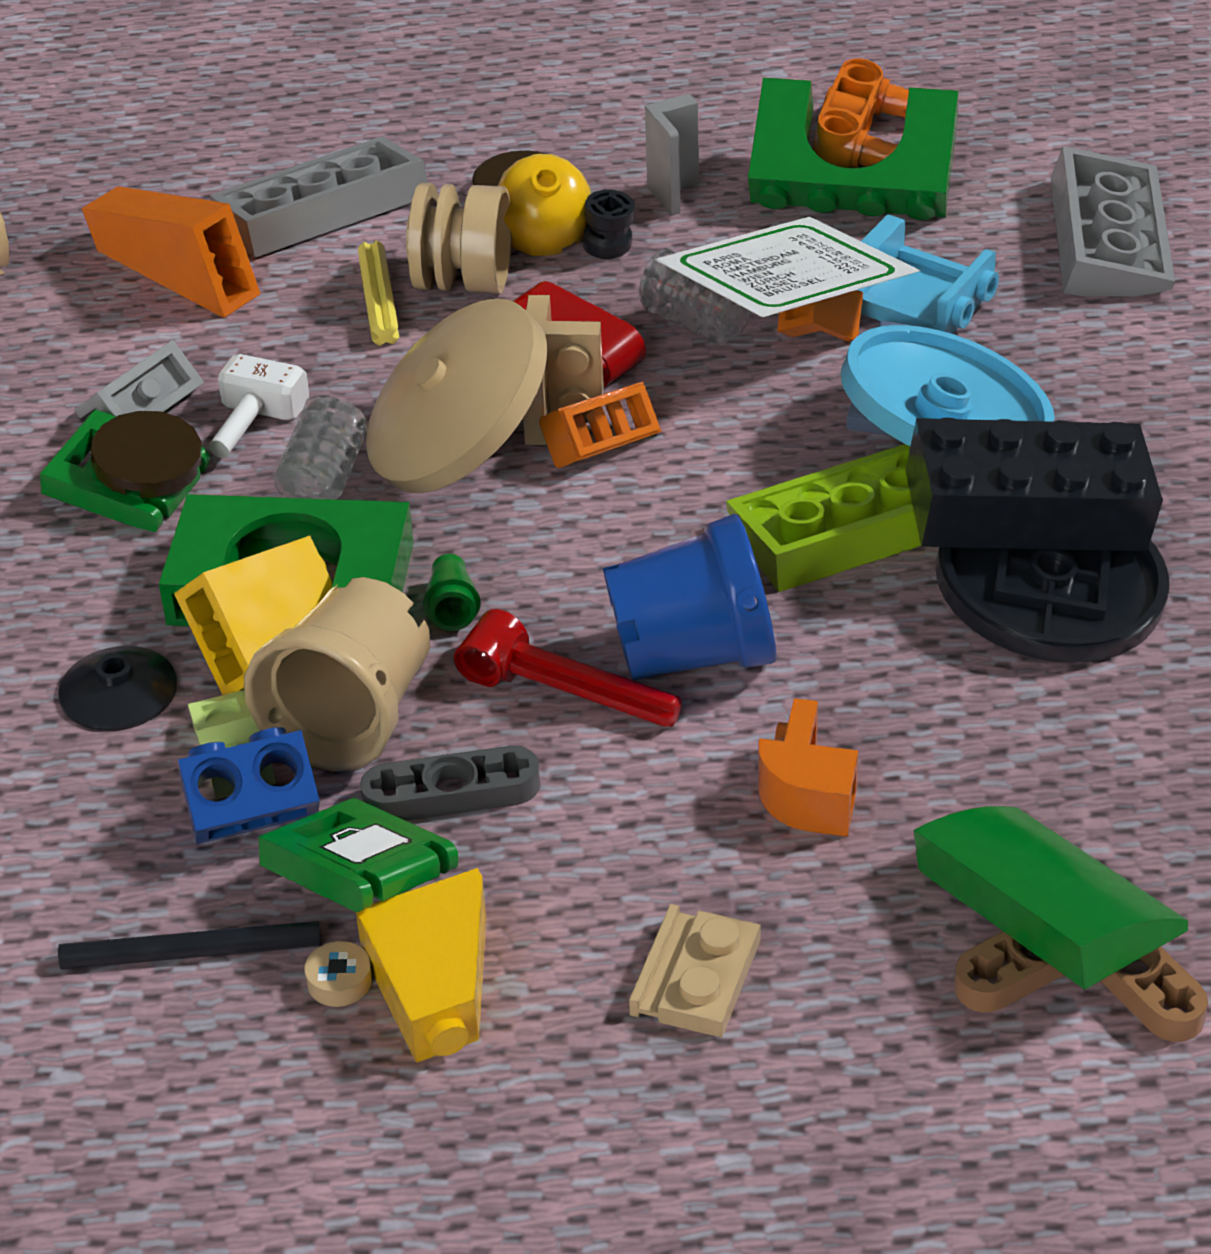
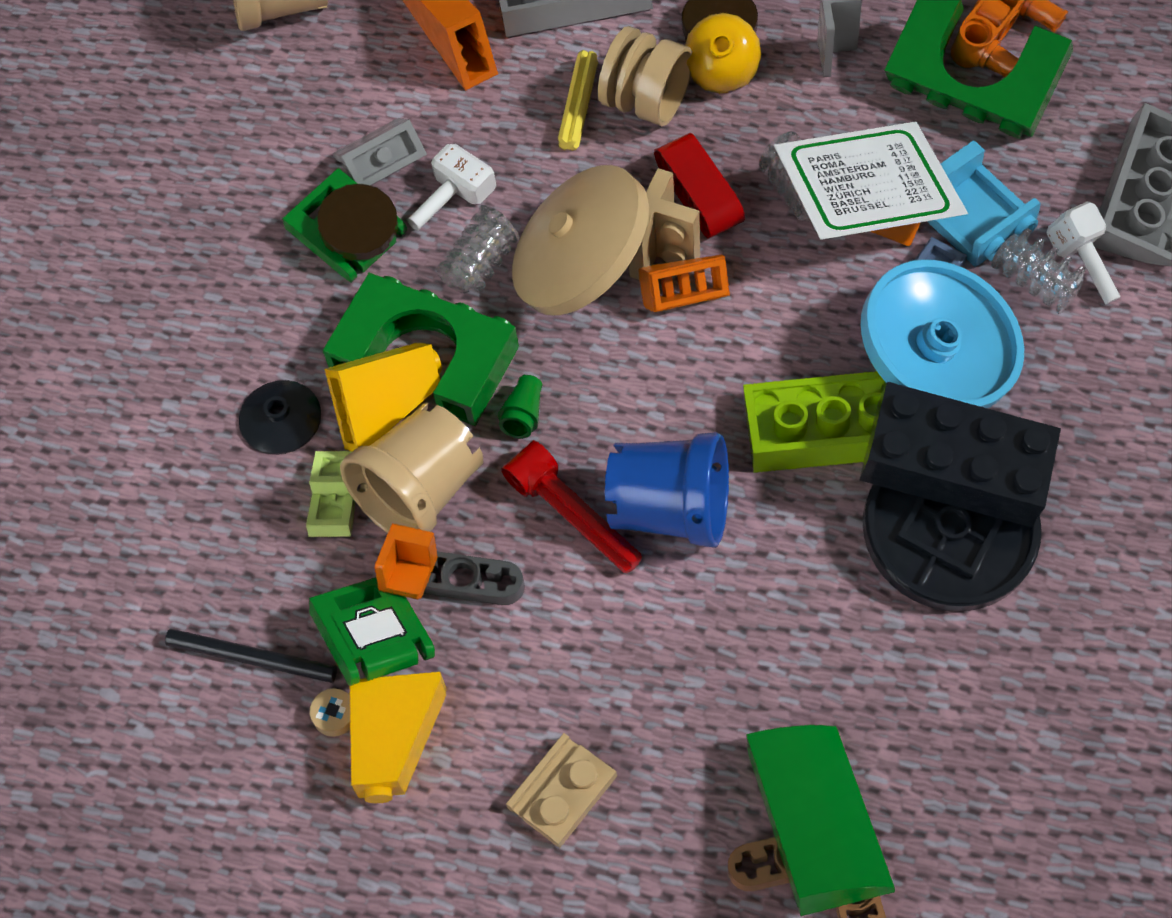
camera: 25 degrees right, 20 degrees up
(253, 801) = (324, 555): blue brick -> none
(376, 764) = (406, 561): none -> orange panel
(610, 216) = (765, 82): black wheel -> none
(806, 782) = (691, 659): orange brick -> none
(1024, 316) = (1039, 270): none -> clear piece
(1049, 276) = (1075, 233): none -> white piece

